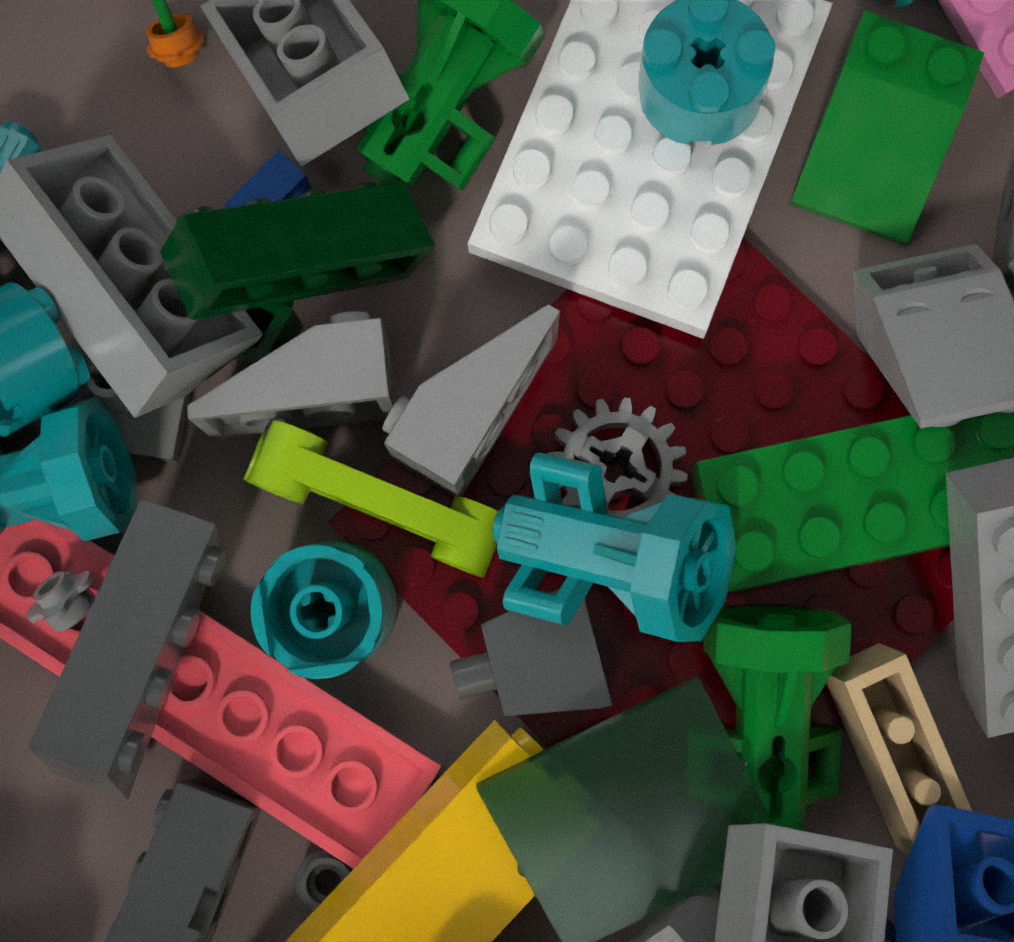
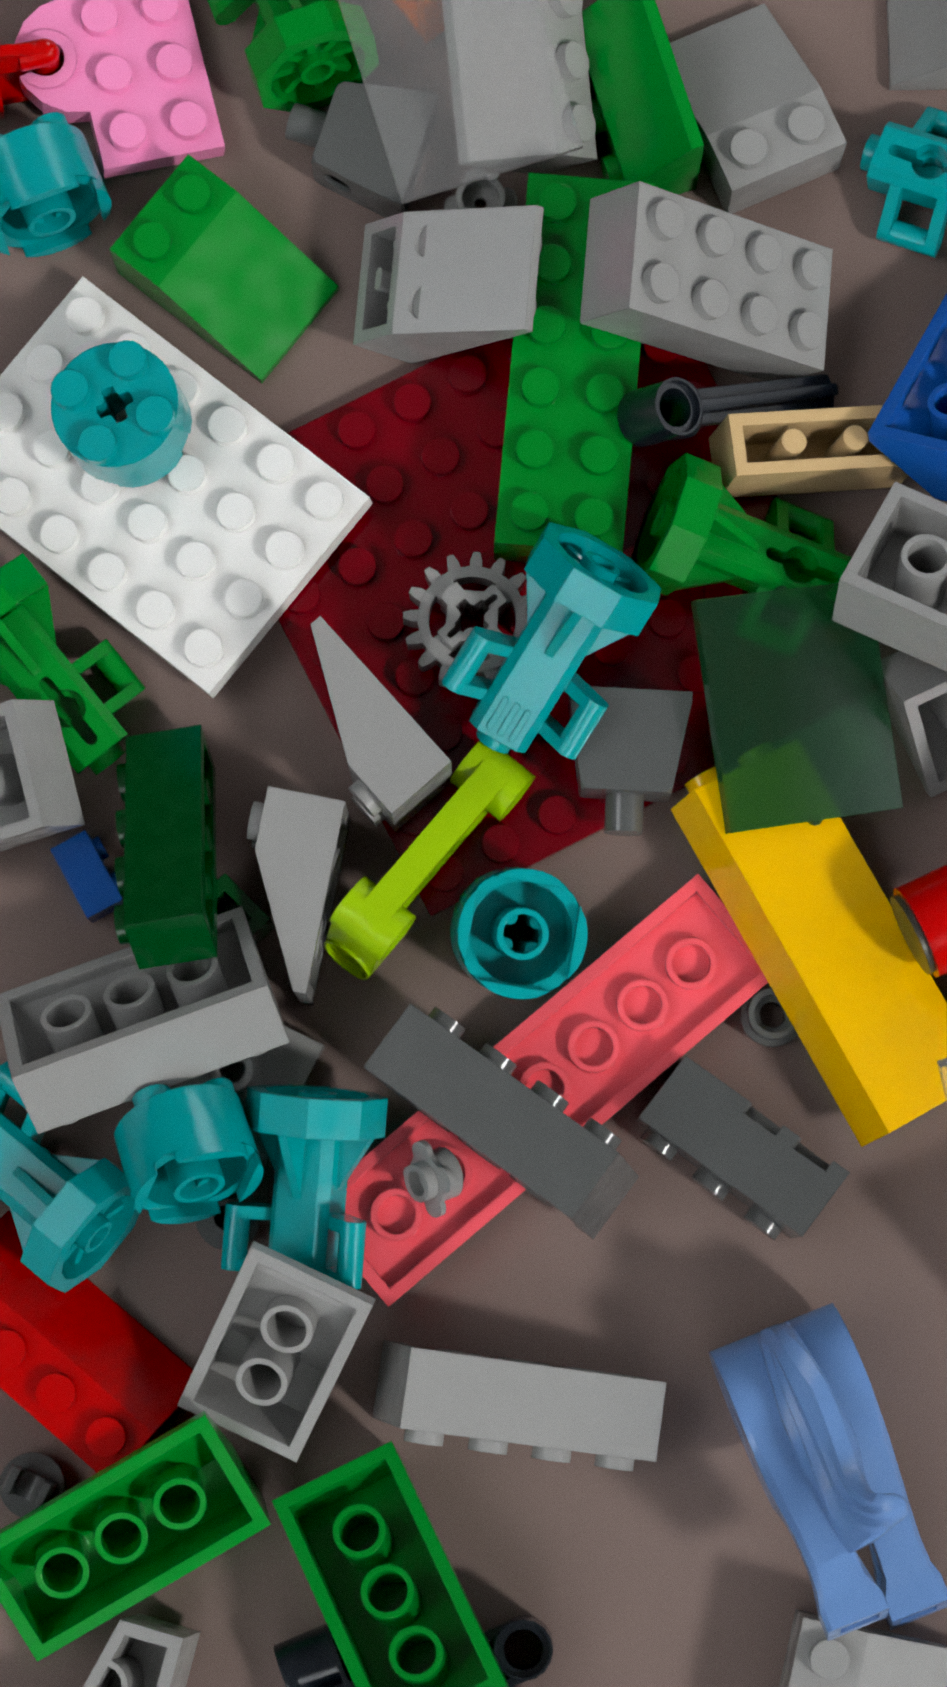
camera: 75 degrees left, 0 degrees up
(897, 611) = (678, 410): none -> black axle

